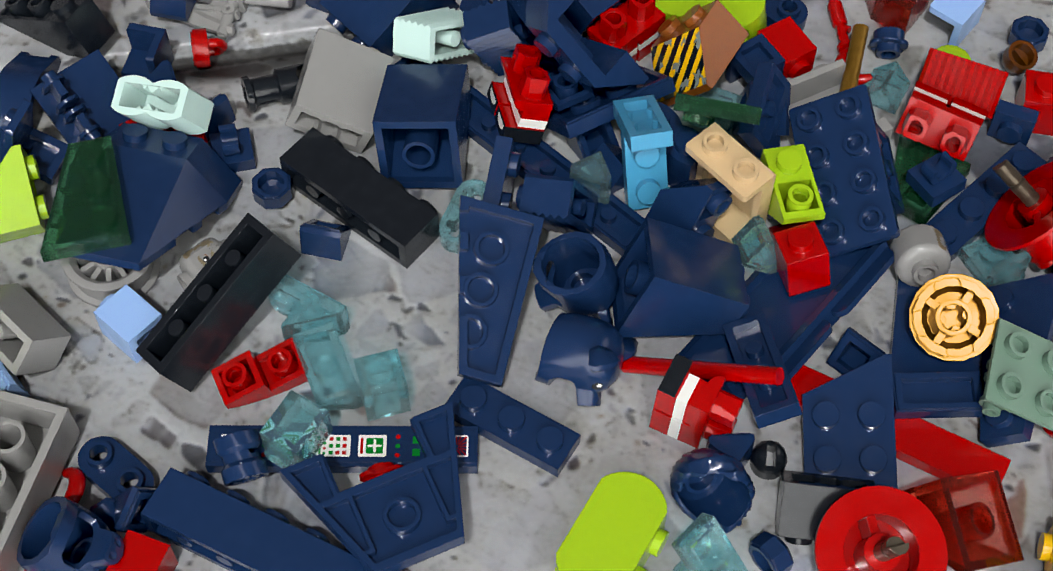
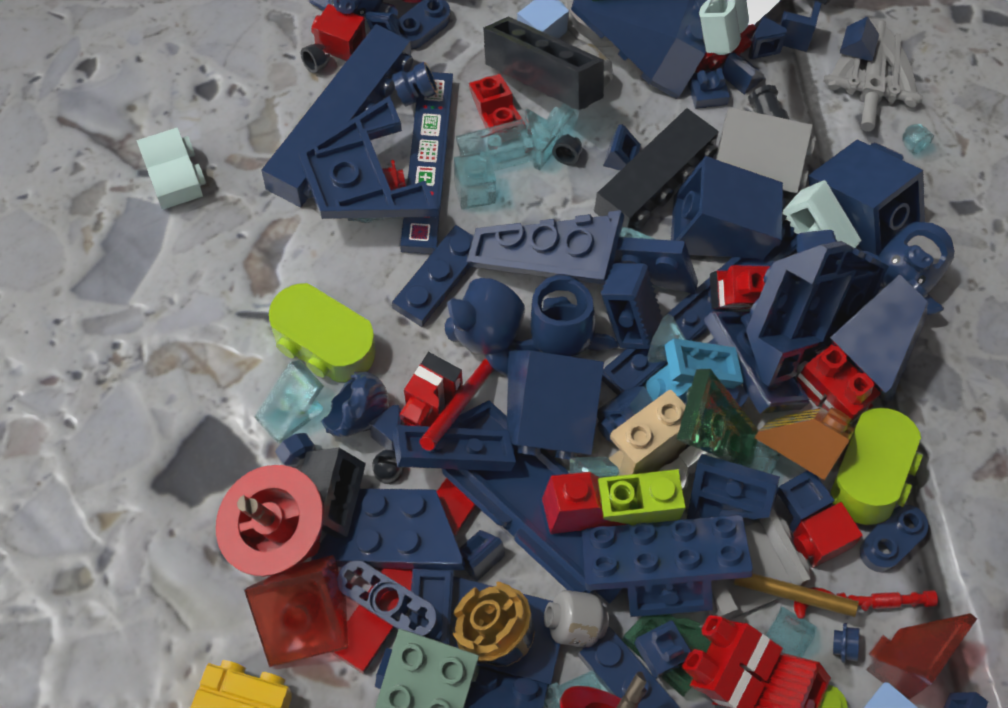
camera: 90 degrees right, 5 degrees up
(205, 47) = (810, 63): red tile -> none
(272, 188) = (666, 110): dark blue tile -> none
(295, 430) = (433, 118): clear light blue brick -> none
(328, 285) = (566, 157): none -> black hinge
(966, 406) = (381, 585): none -> dark blue beam

